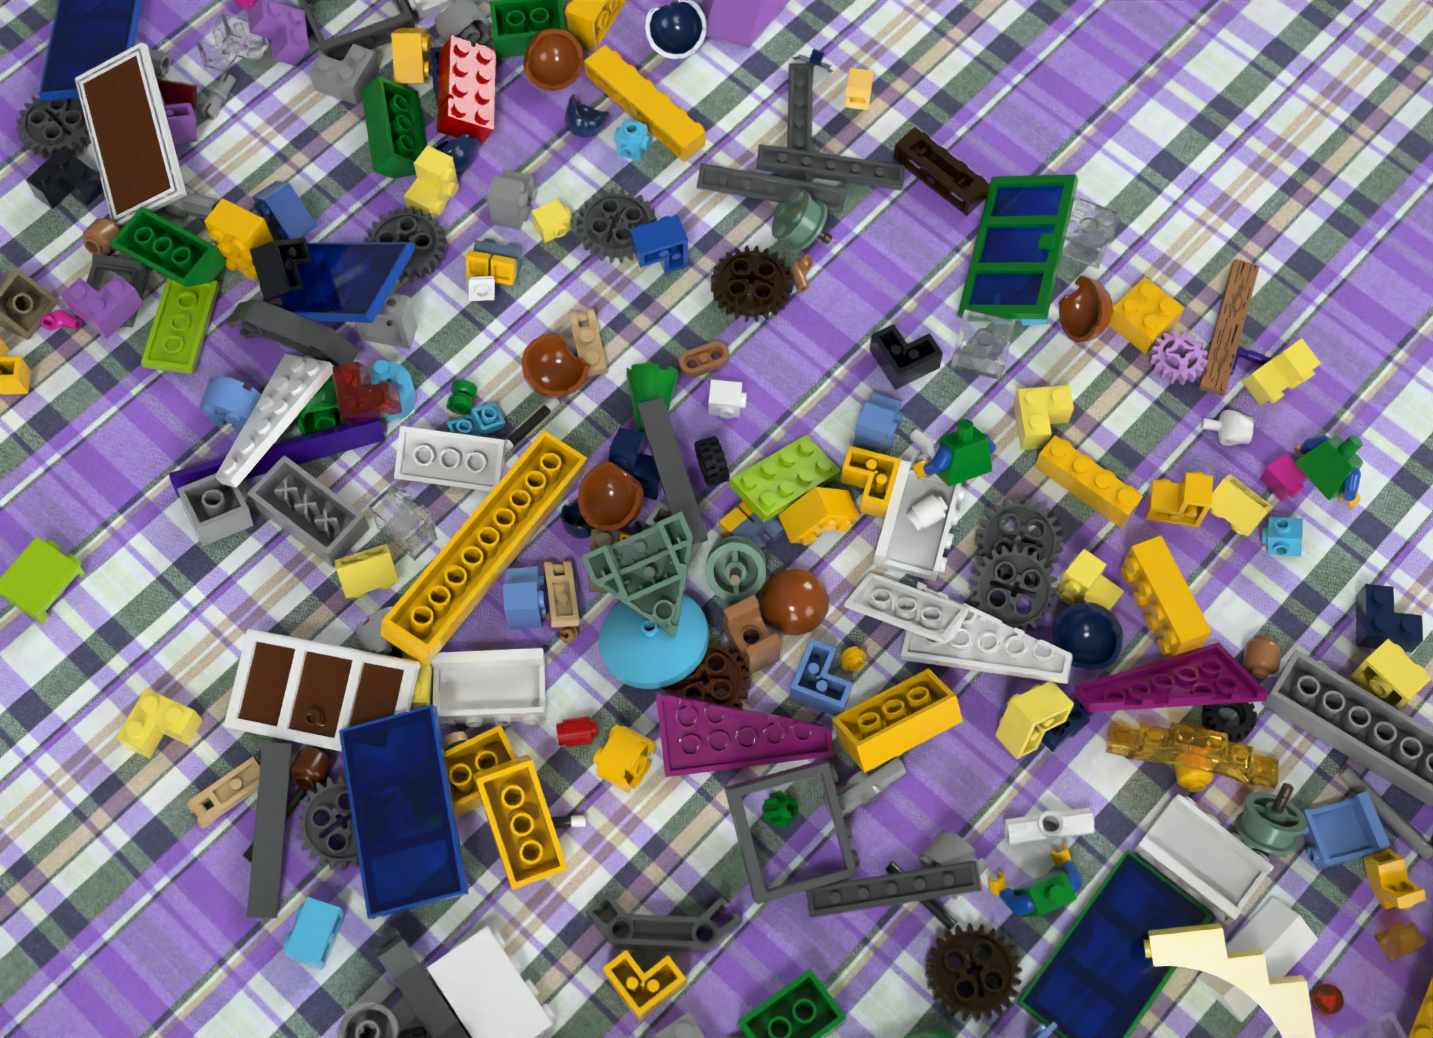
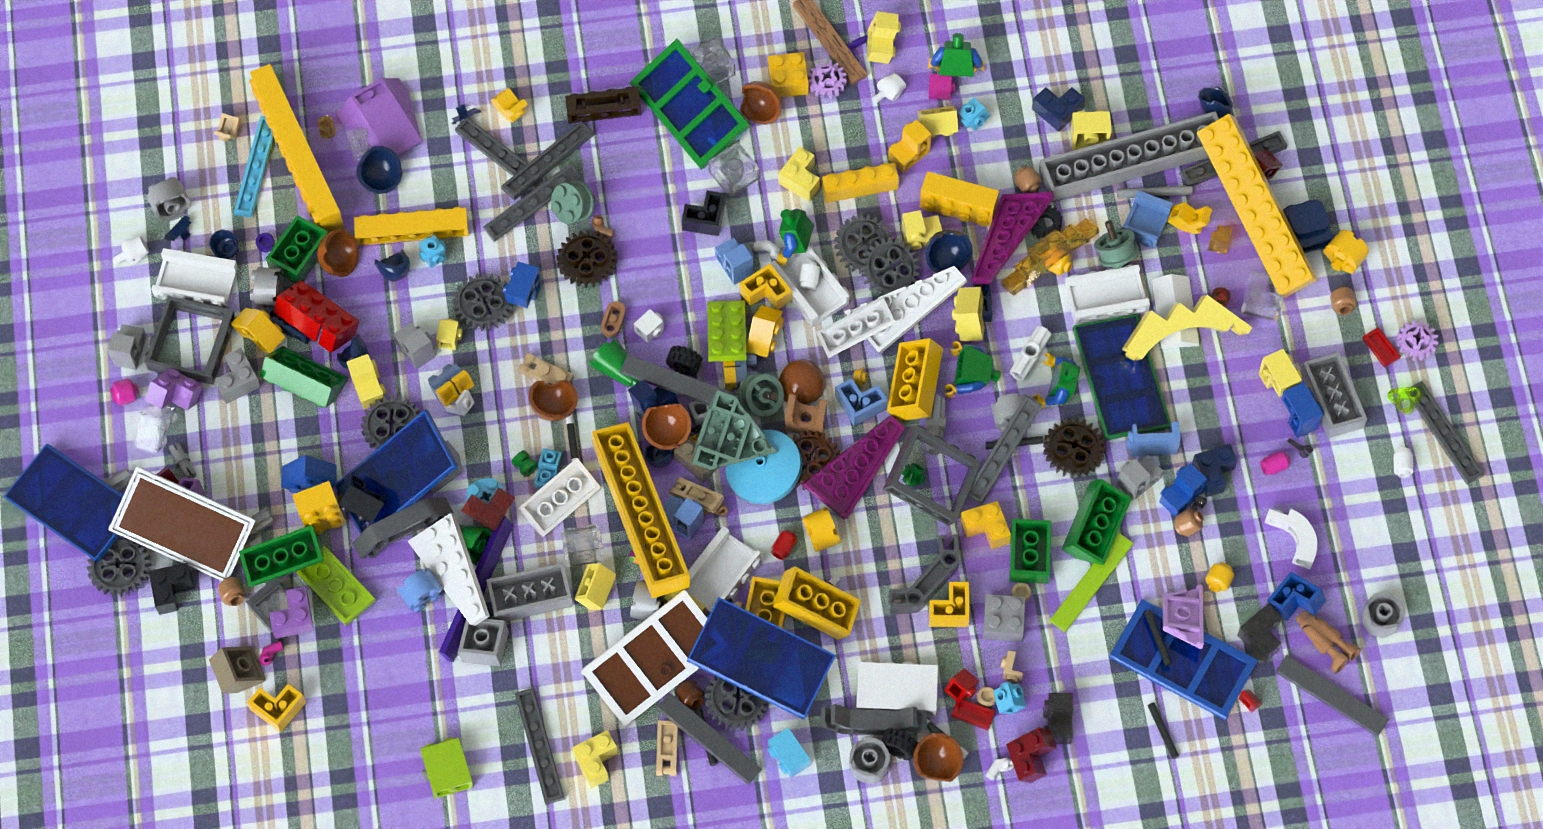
camera: 50 degrees left, 0 degrees up
(137, 657) = (539, 746): none -> dark grey tile
(793, 940) = (987, 520): none -> yellow brick
(968, 776) = (972, 369): none -> green torso

